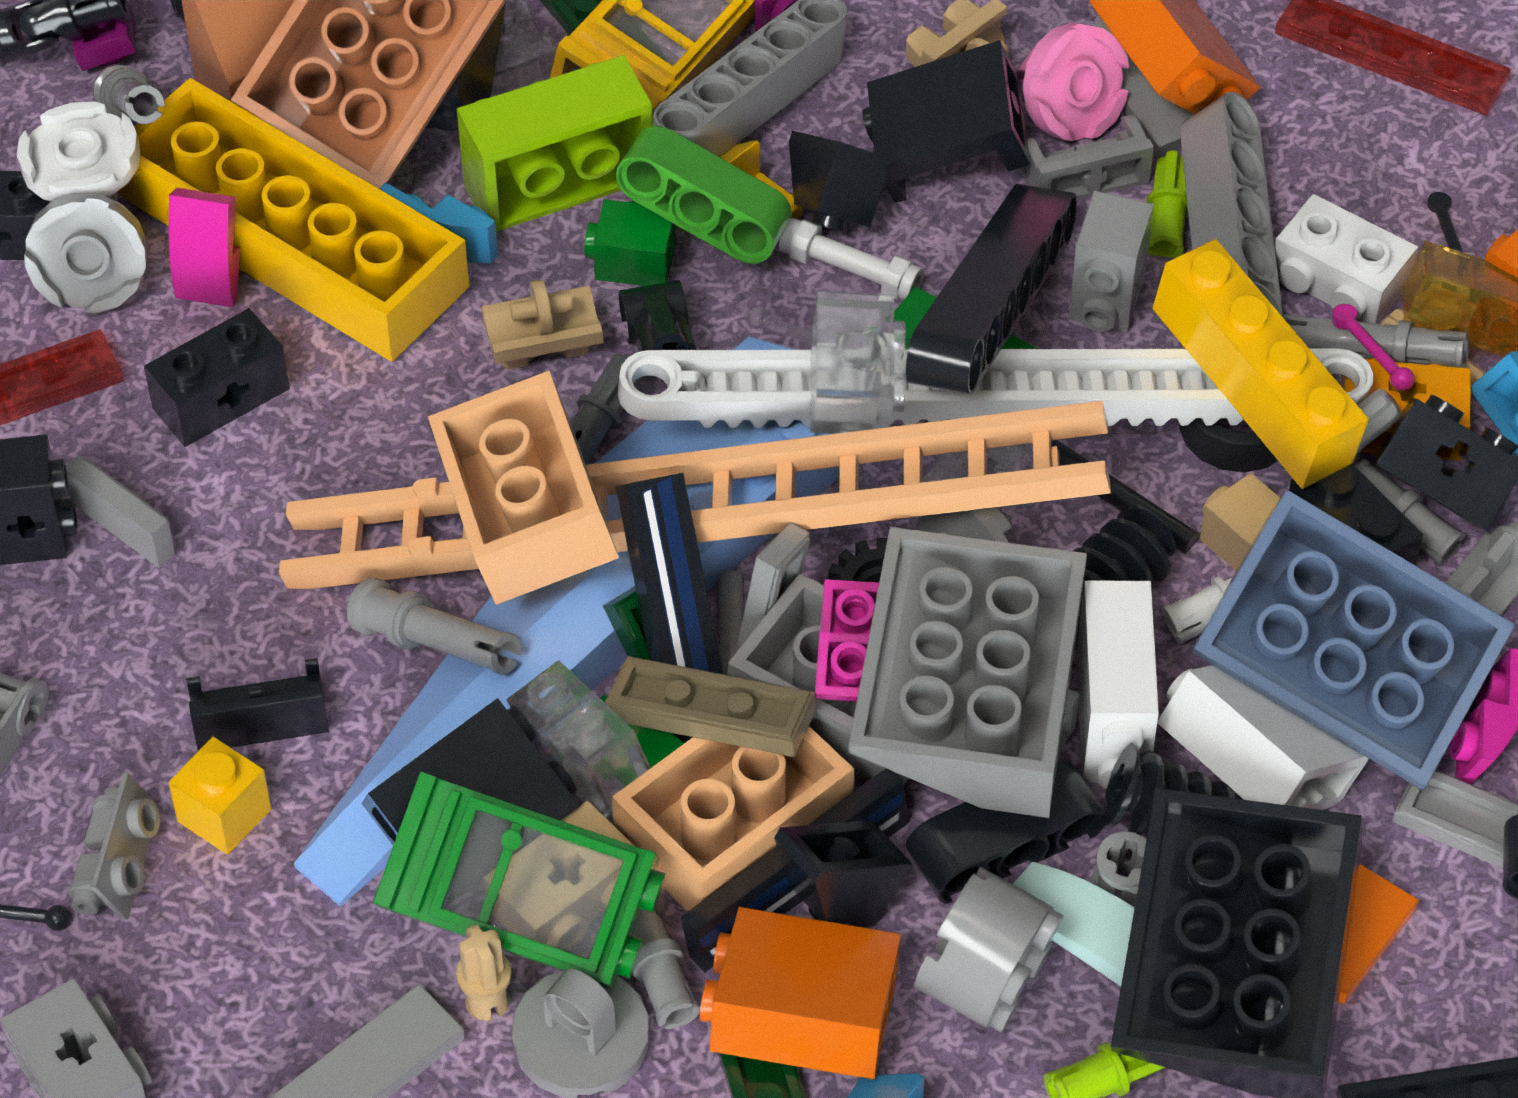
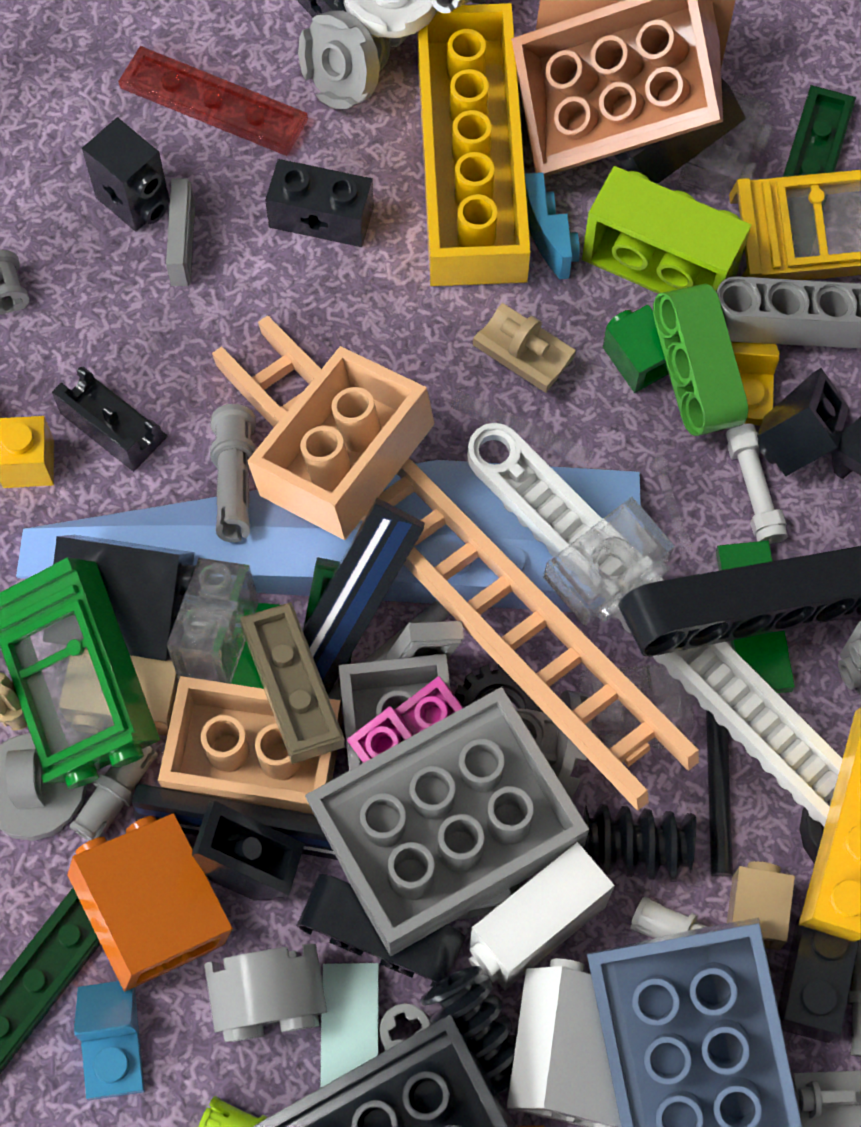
camera: 50 degrees right, 15 degrees up
(202, 247) = (396, 115): dark pink slope -> none
(599, 409) = (525, 423): dark grey axle -> none
(656, 317) = (587, 414): black piece -> none

